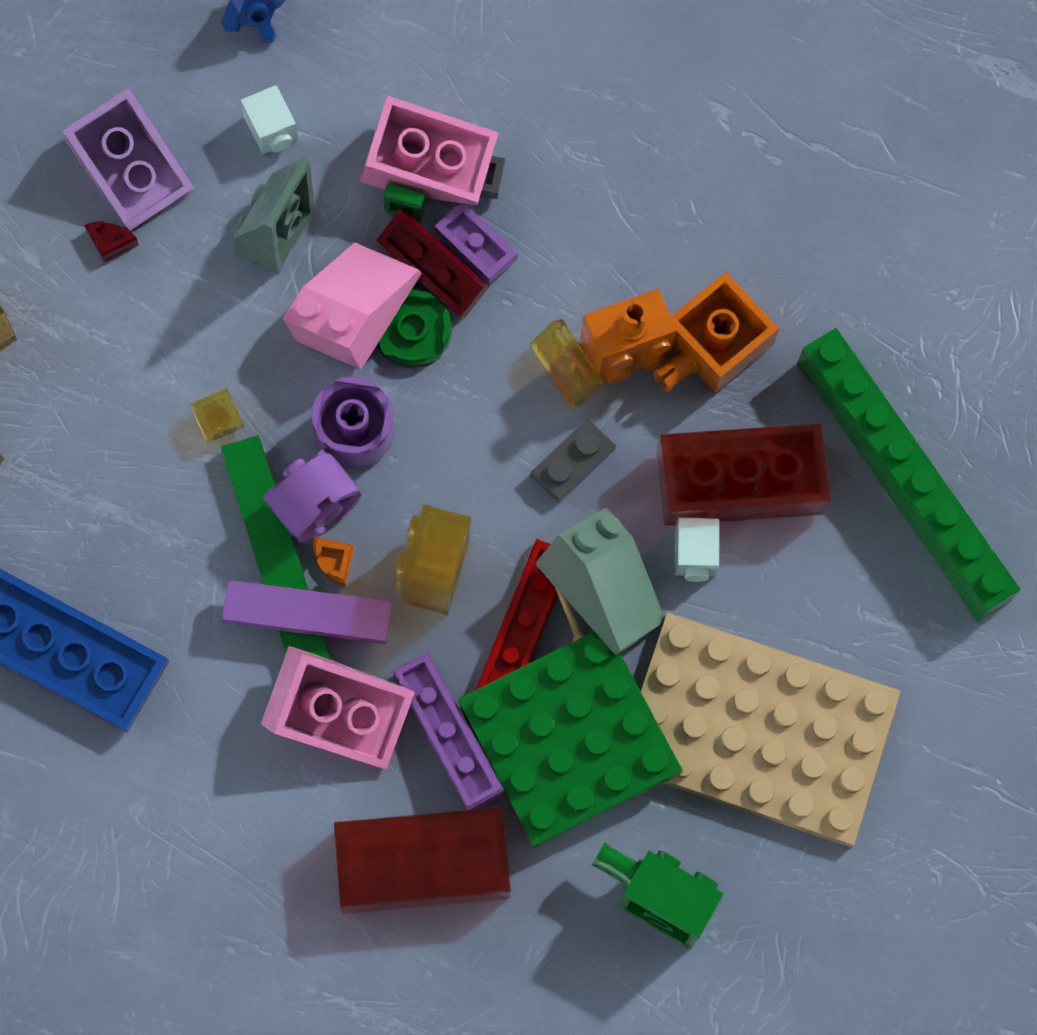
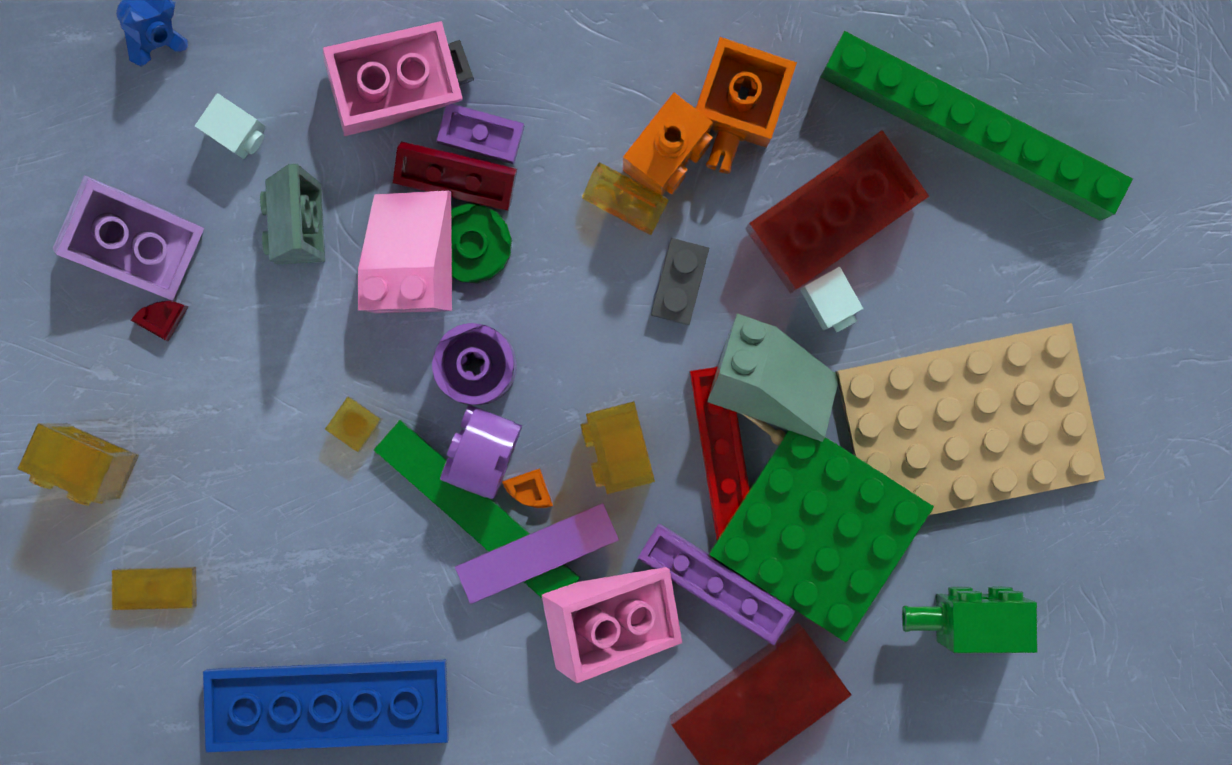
camera: 25 degrees left, 15 degrees up
(401, 198) = (393, 133): green tile -> none

